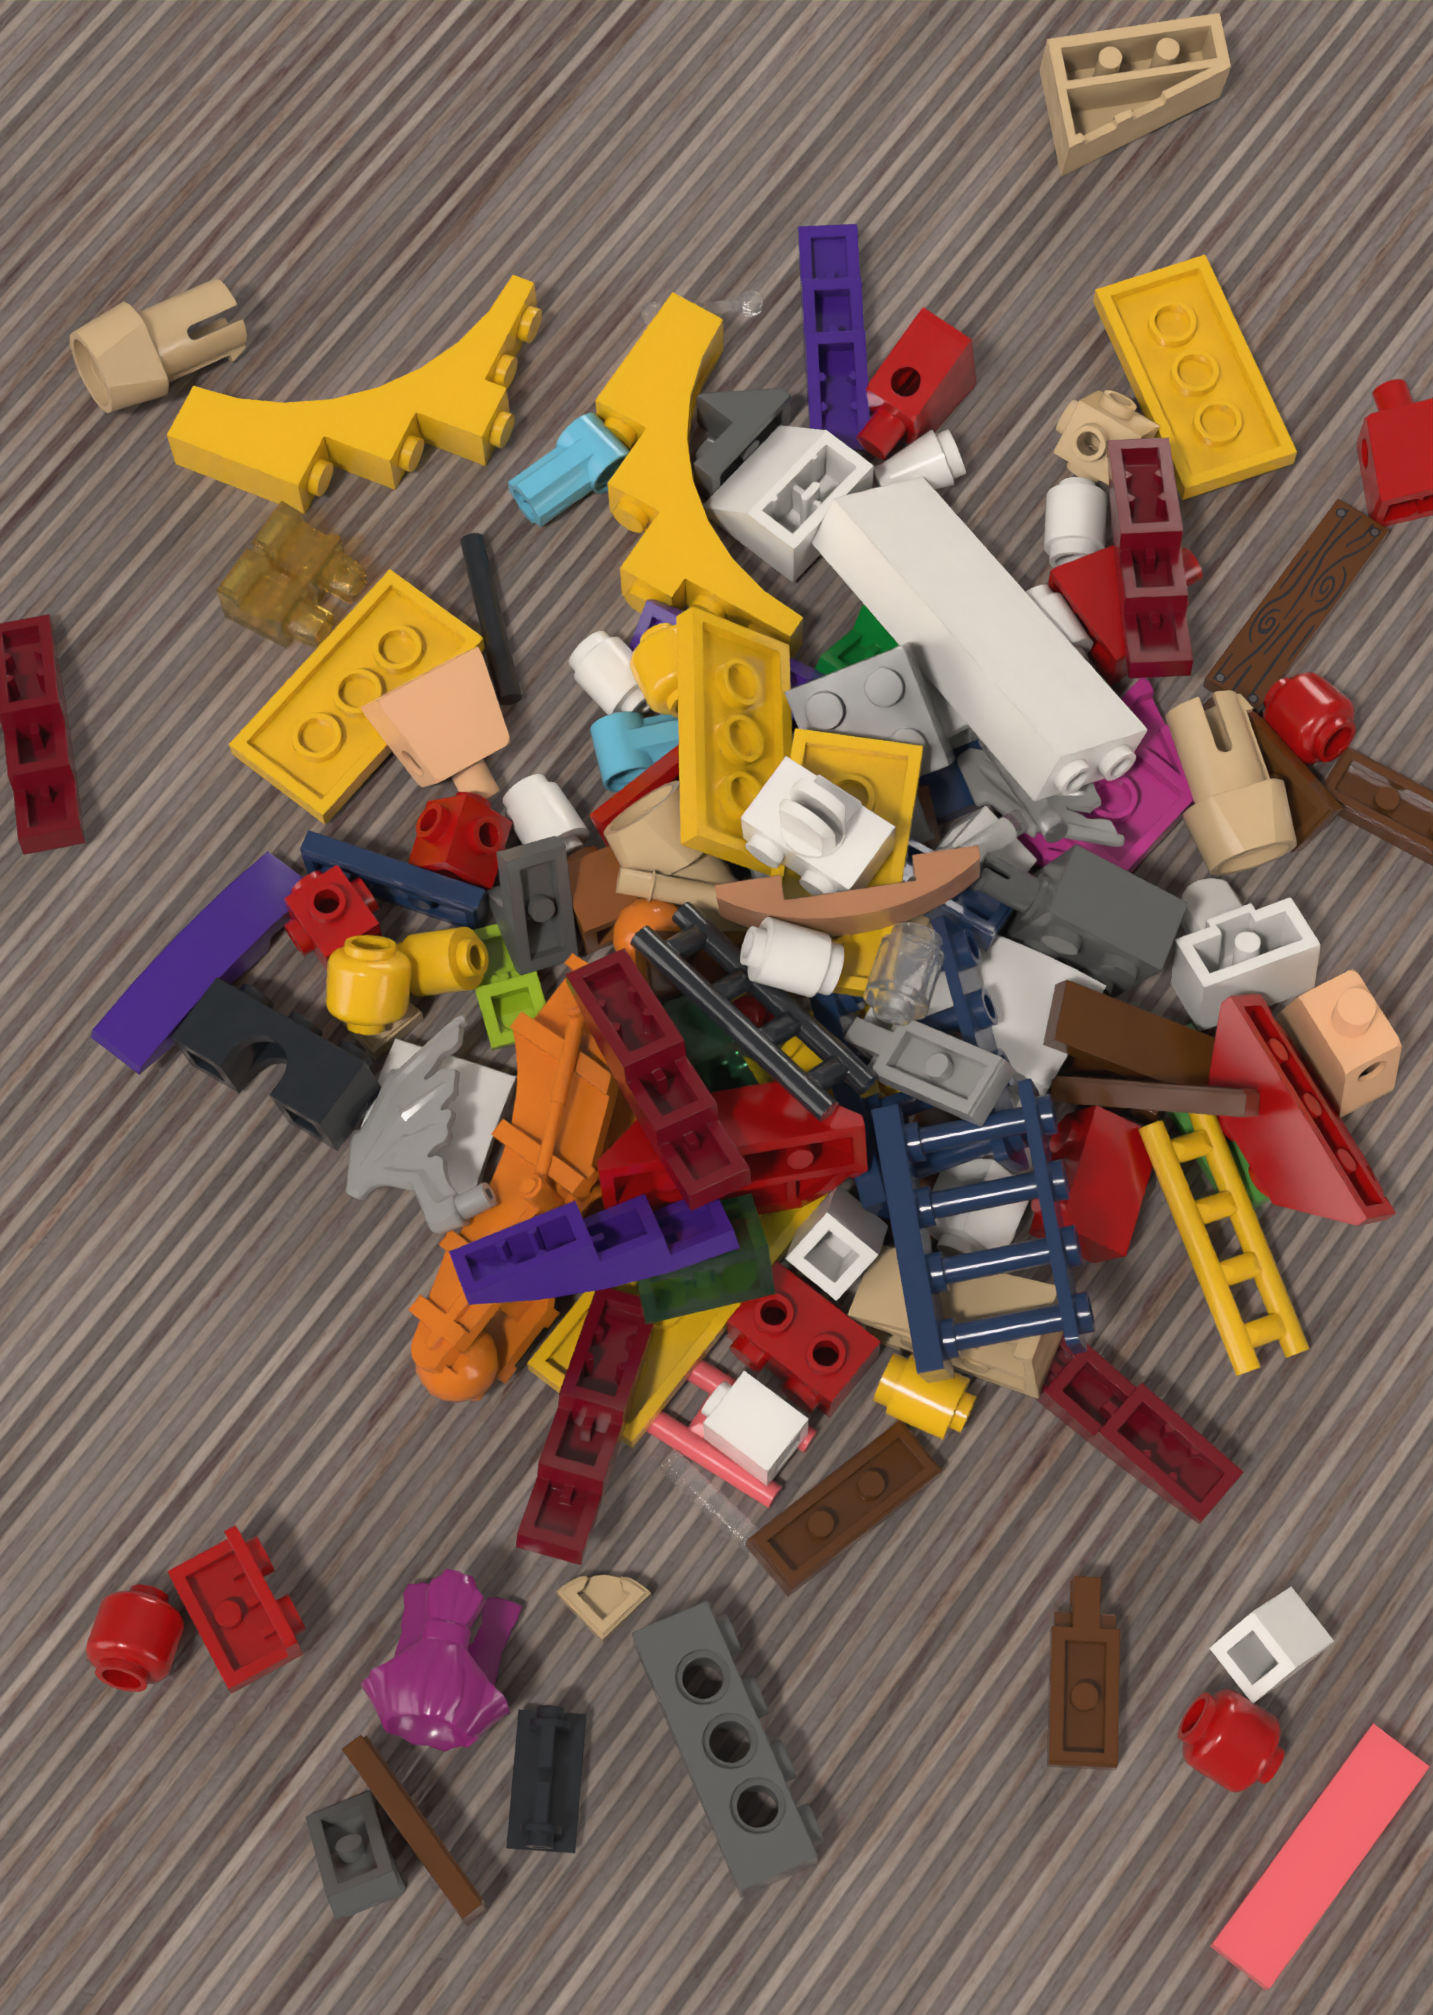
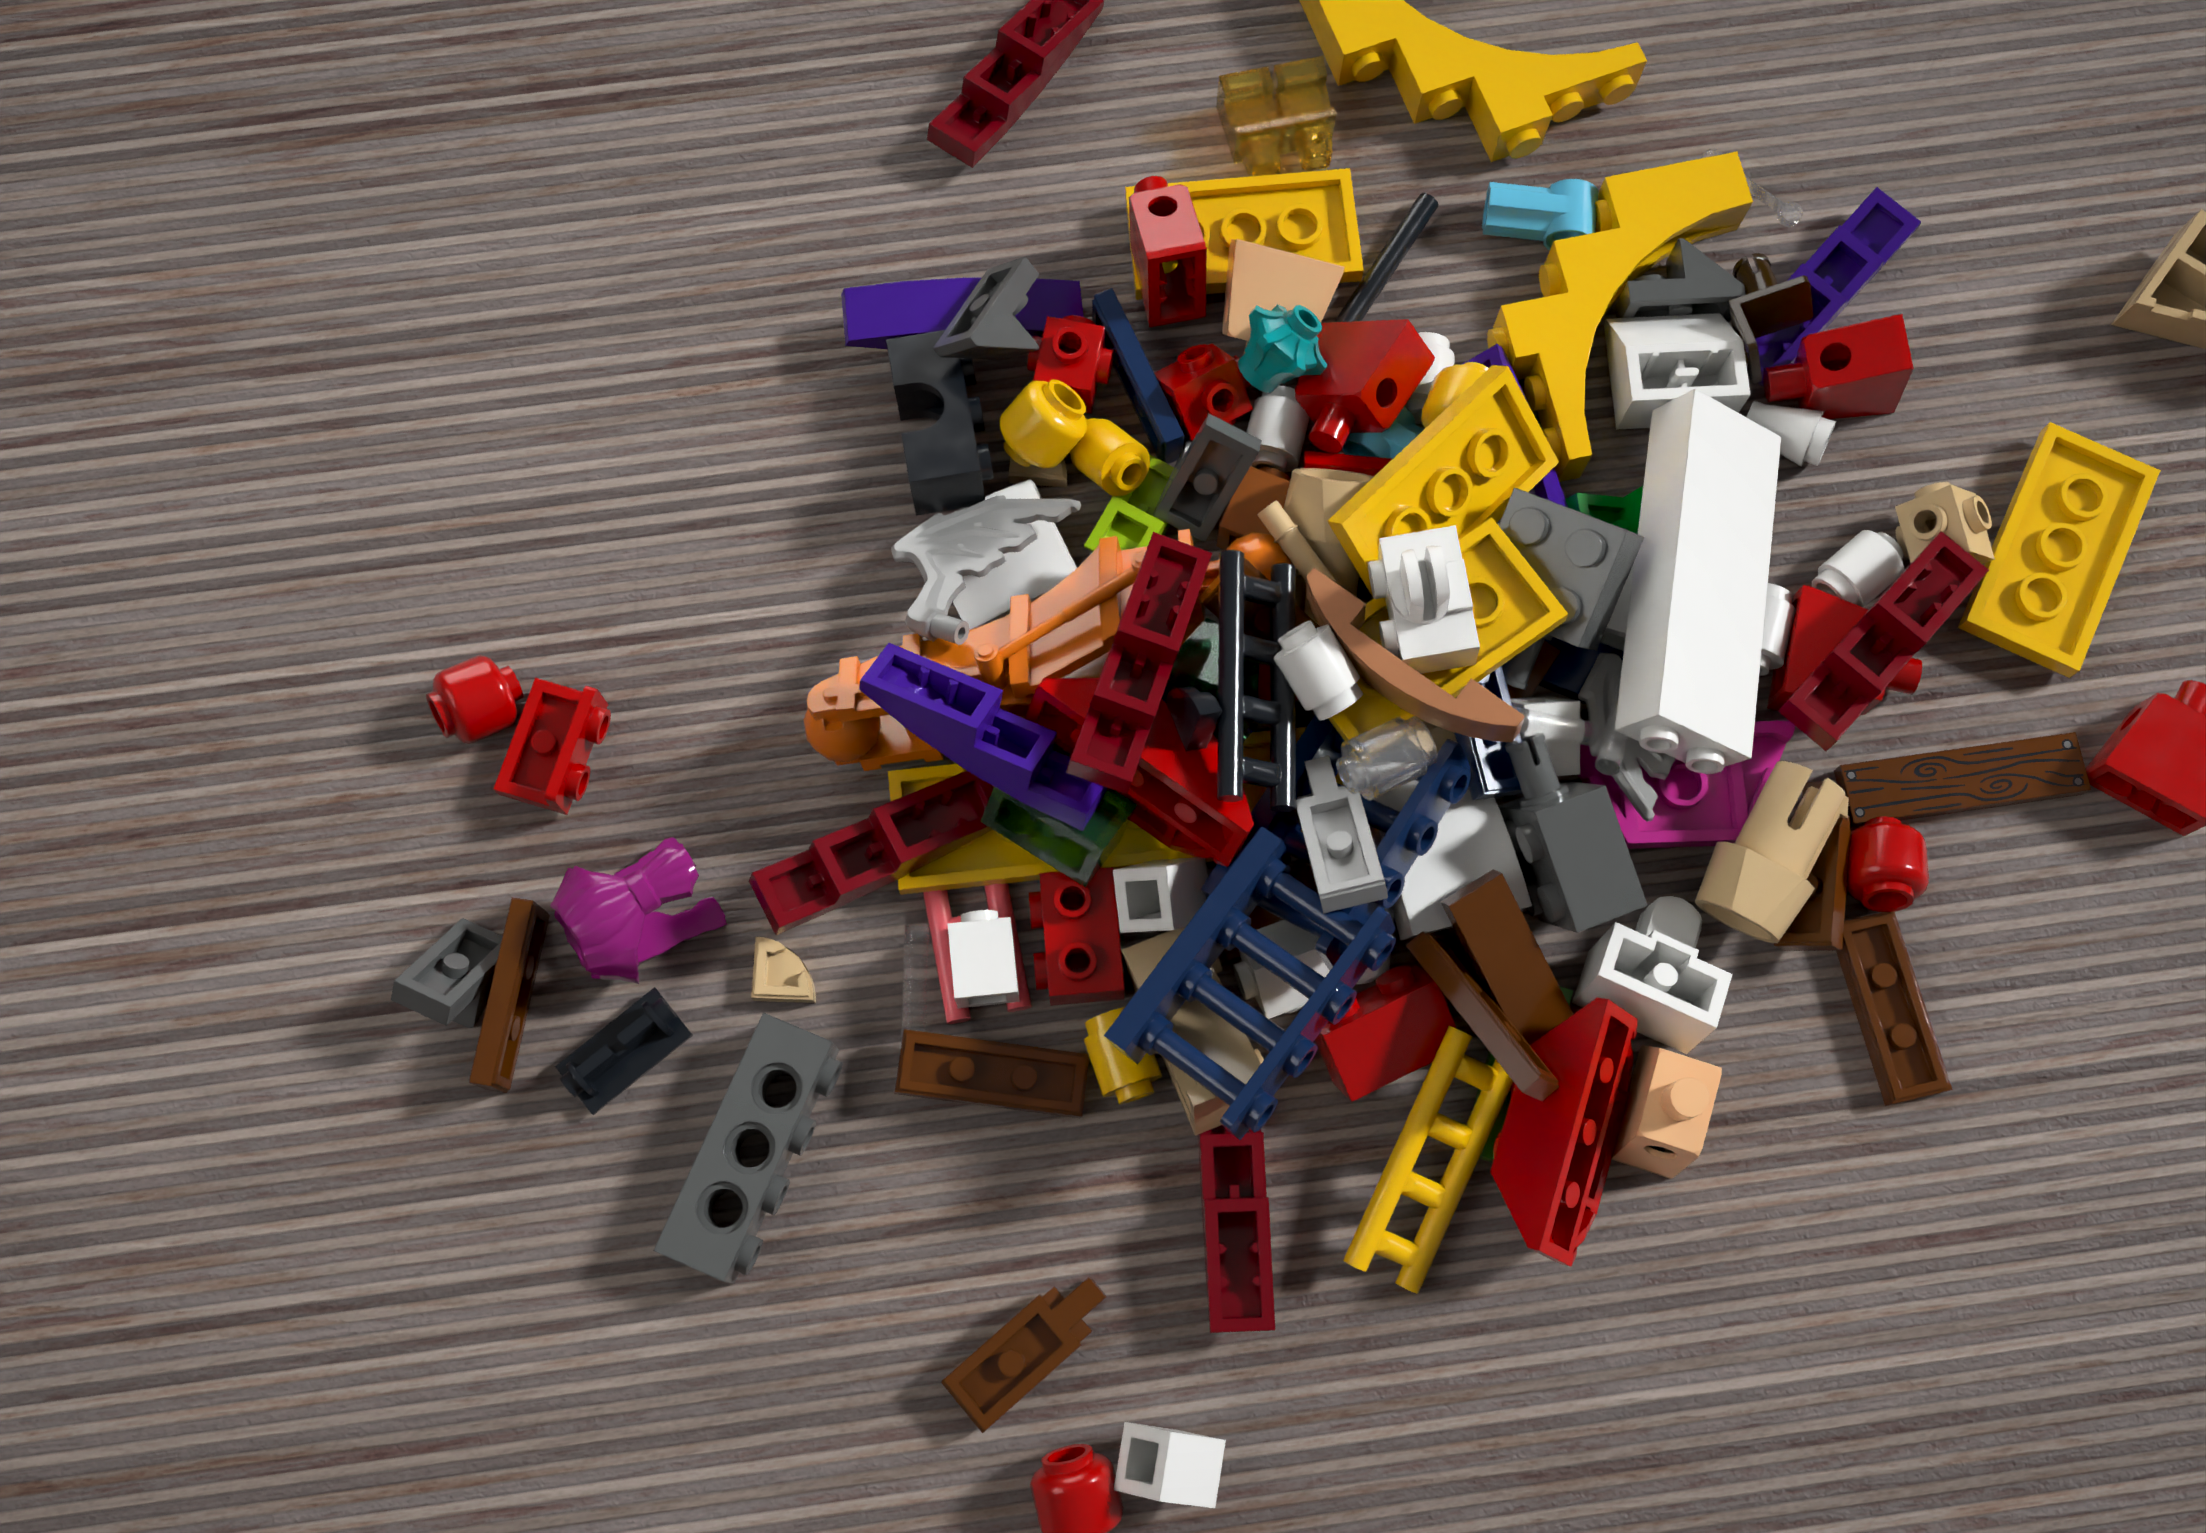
camera: 45 degrees right, 5 degrees up
(237, 938) = (987, 319): none -> dark grey slope
(326, 760) = (1163, 231): none -> red torso
(494, 751) = (1281, 347): none -> teal rock
(573, 721) = (1366, 379): none -> red torso
(736, 1079) = (1193, 715): none -> black tile
(813, 389) = (1766, 306): none -> dark brown bracket

